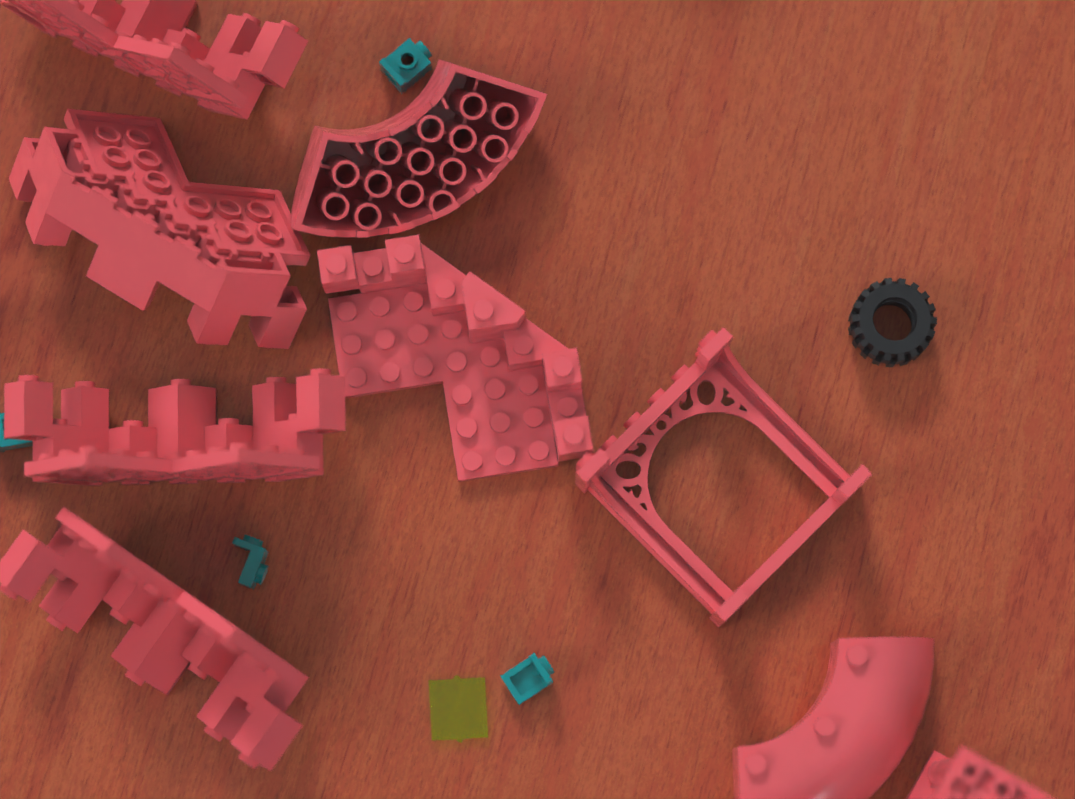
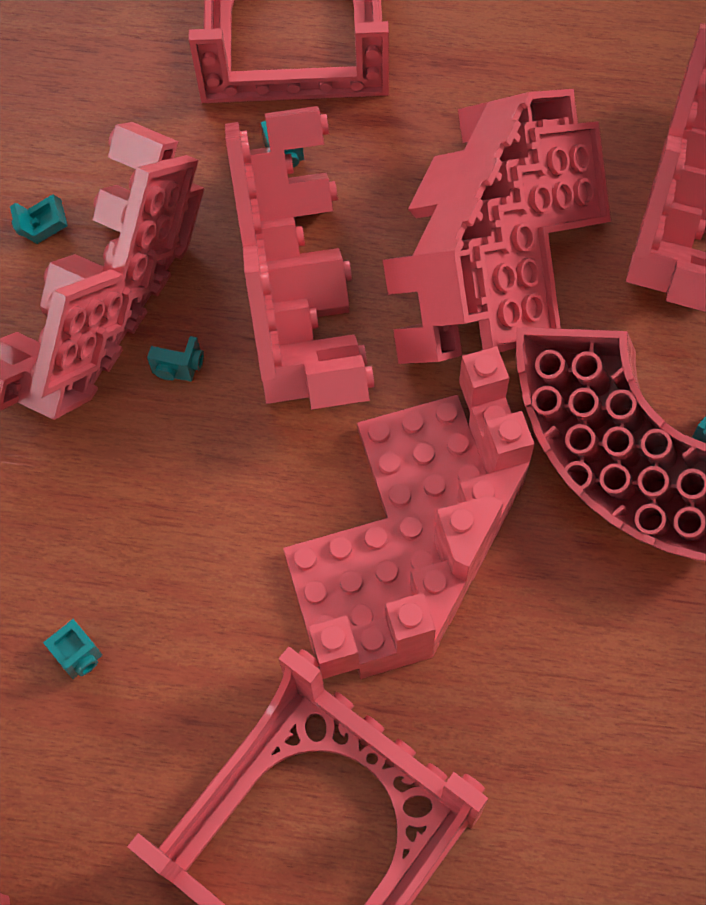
camera: 85 degrees right, 15 degrees down
(63, 689) = (39, 220): none -> teal bracket
(458, 709) = (40, 585): clear neon green piece -> none

